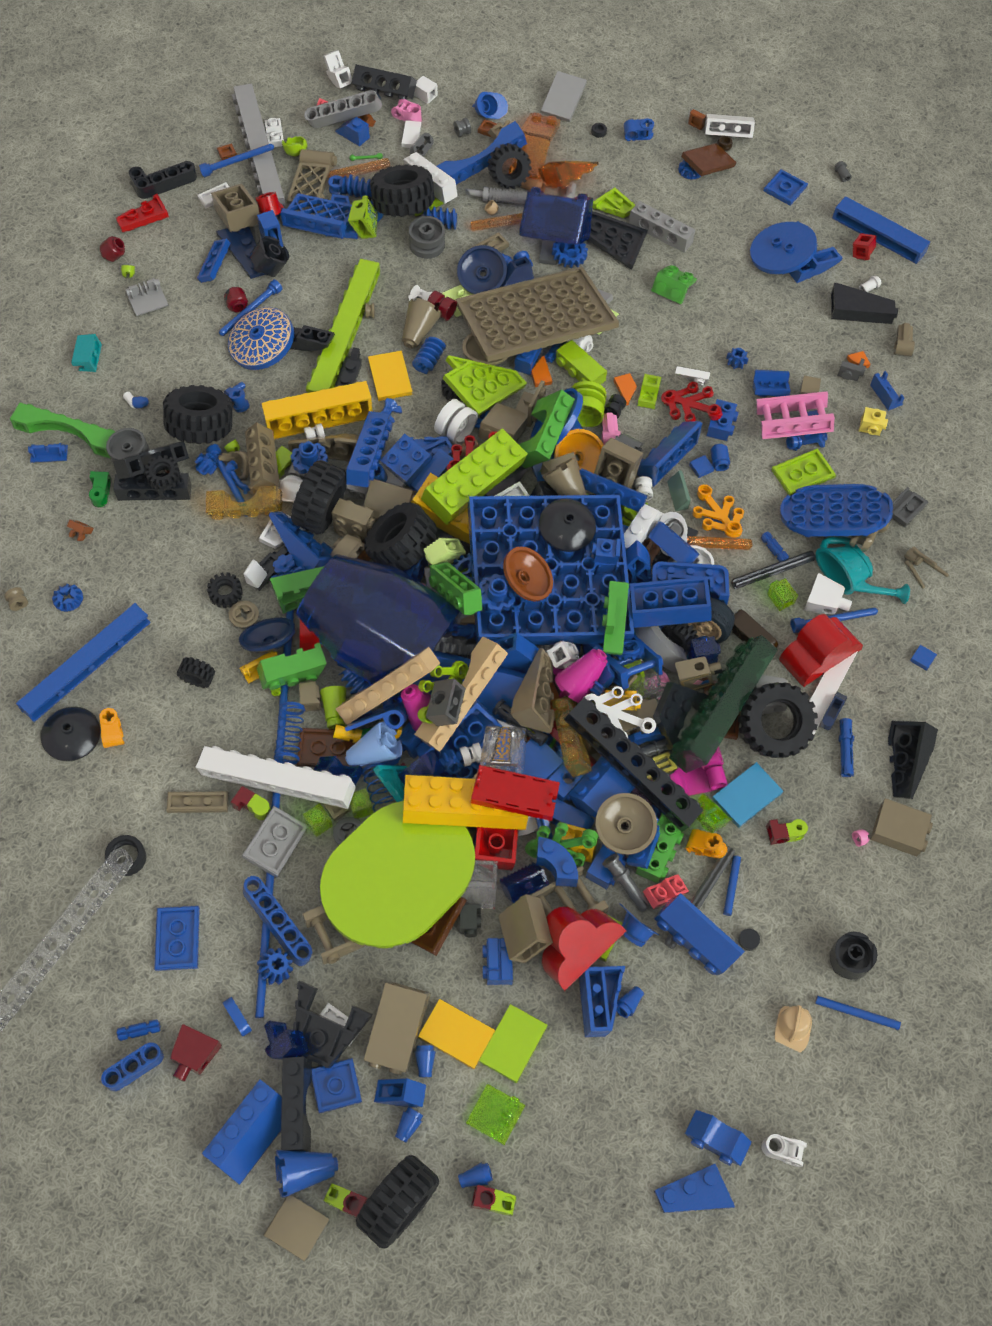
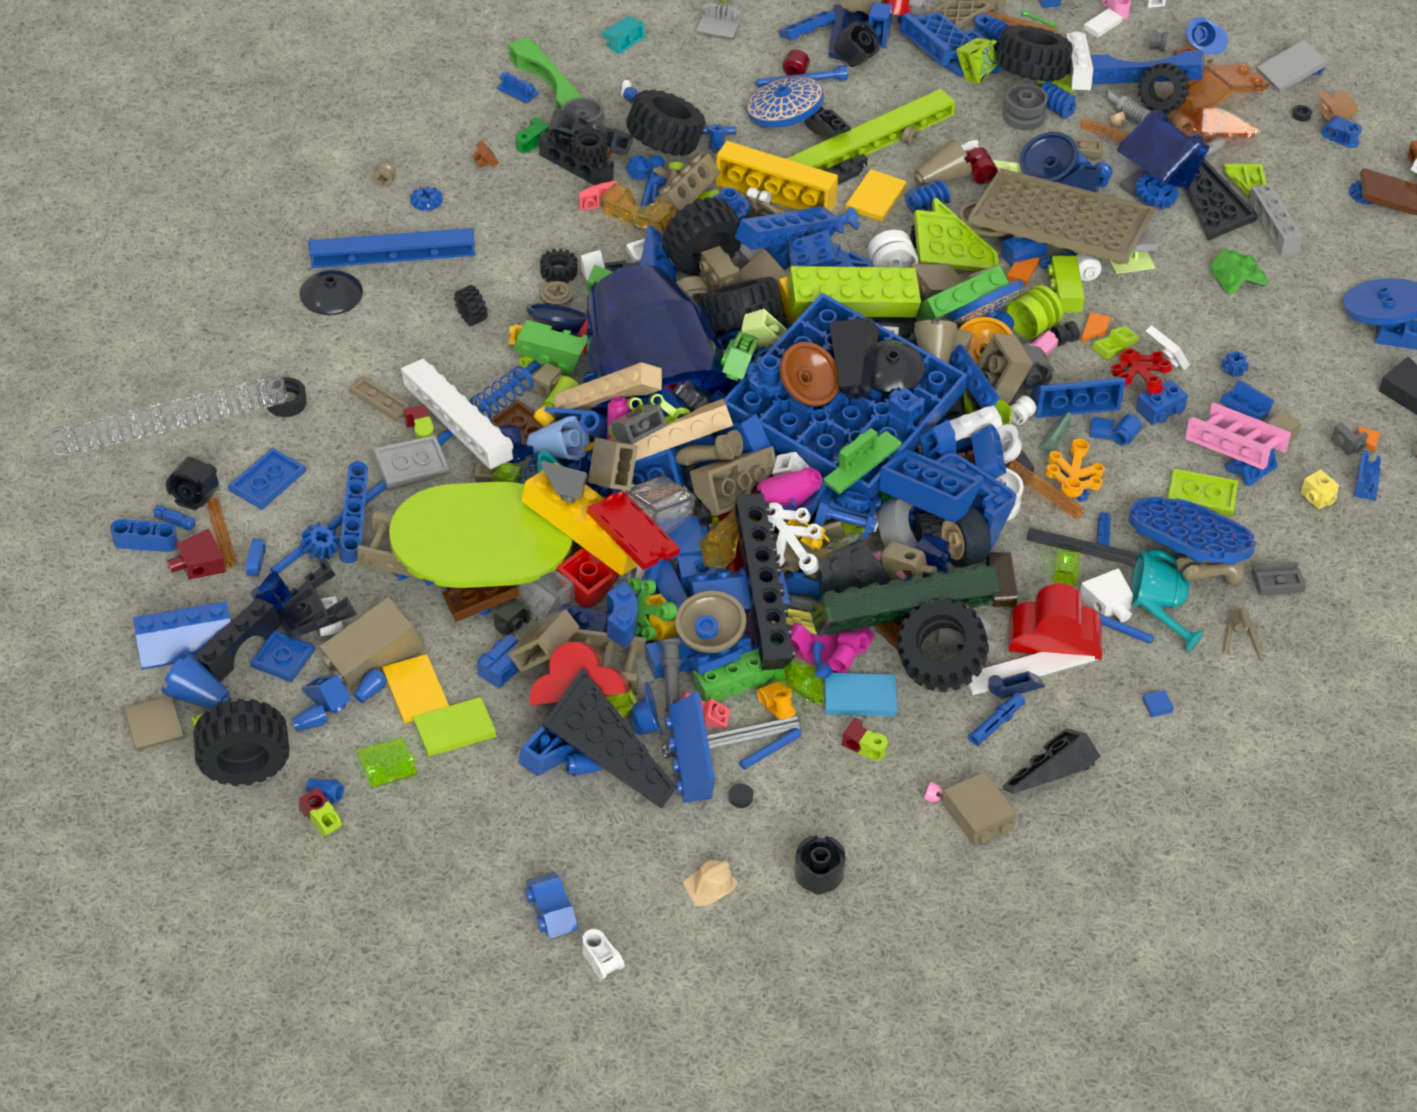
camera: 40 degrees right, 15 degrees down
(110, 730) = (364, 305): light orange piece -> none
(130, 991) = (190, 478): none -> black brick
(188, 1014) = (221, 532): none -> clear orange axle
(195, 512) = (591, 196): none -> coral slope
(317, 820) = (460, 467): clear neon green brick -> none
(419, 144) = (1100, 31): dark grey beam -> none
(438, 788) = (566, 481): none -> slope
(457, 750) = (612, 464): none -> dark tan brick
(515, 679) = (725, 448): none -> dark tan piece
(542, 534) = (854, 354): none -> black slope
(620, 111) = (1339, 105): none -> medium nougat brick
(630, 832) = (706, 627): none -> blue tile
(631, 975) = (601, 734): none -> black wing
(695, 1192) = (494, 931): blue wing -> none
(714, 798) = (822, 670): none -> blue piece
(793, 442) = (1218, 461): blue plate -> none
(858, 1012) = (781, 914): blue bar -> none

